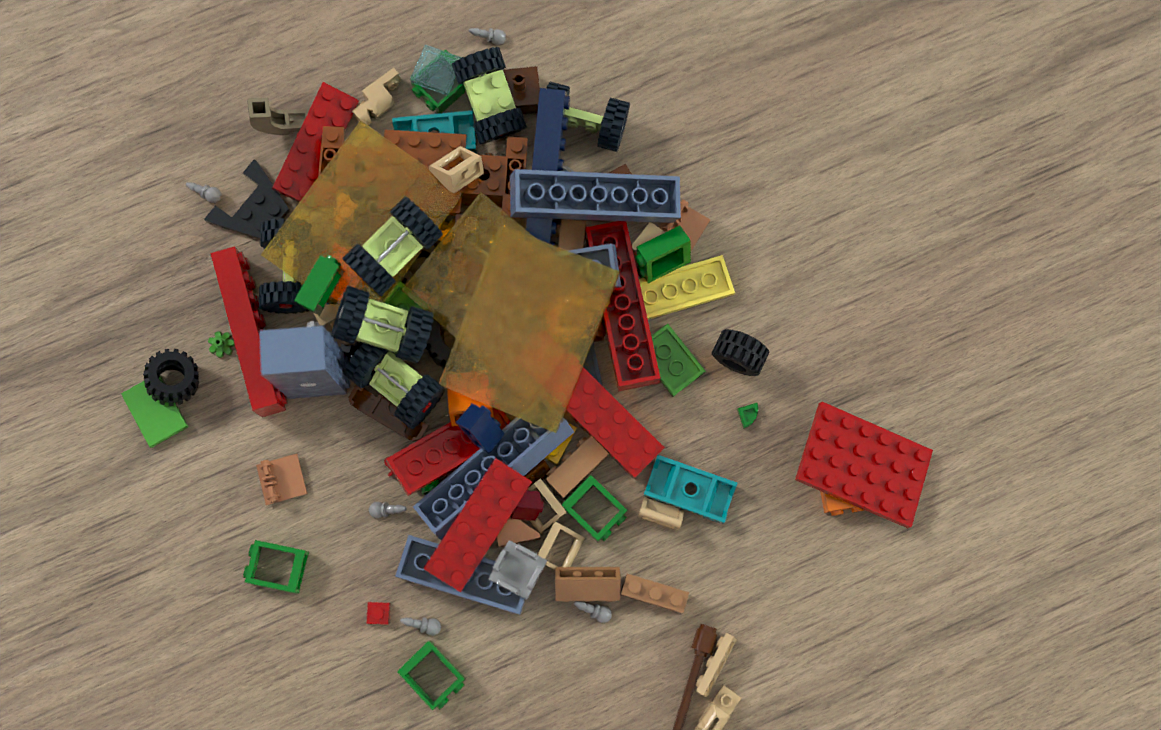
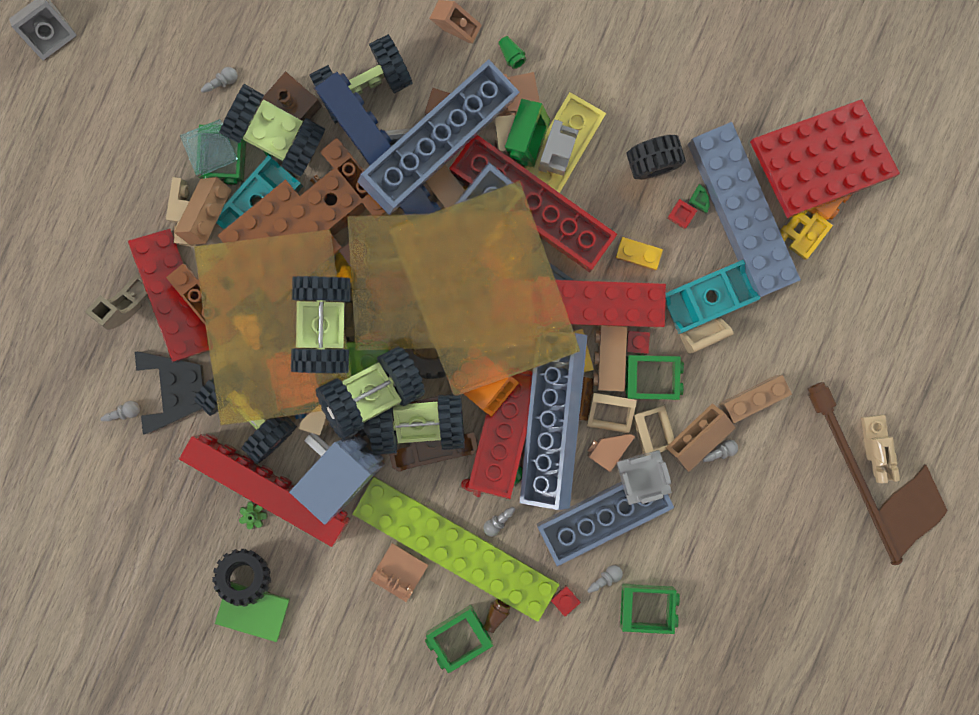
camera: 40 degrees left, 10 degrees up
(320, 284) = (292, 407): green window -> none
(320, 575) = (496, 615): none -> reddish brown cone
(337, 502) = (456, 549): none -> lime plate
(391, 107) = (203, 211): none -> medium nougat brick
(462, 173) = (316, 216): tan tile -> none
(477, 525) = (584, 472): red plate -> none
(481, 427) = (517, 398): dark blue brick -> none
(528, 507) = (602, 423): dark red brick -> none
(608, 474) = (638, 342): none -> red plate
(667, 412) = (639, 253): none -> yellow plate
(674, 283) = (558, 148): none -> light grey panel
(675, 361) = (609, 207): bright green tile -> none
(687, 137) = (455, 20): none -> nougat slope
(707, 194) = (512, 53): none -> green cone
(715, 664) = (845, 409): tan plate -> none
(724, 412) = (682, 214): none -> red plate
(771, 450) = (743, 209): none -> sand blue brick
(803, 513) = (810, 235): none -> yellow plate

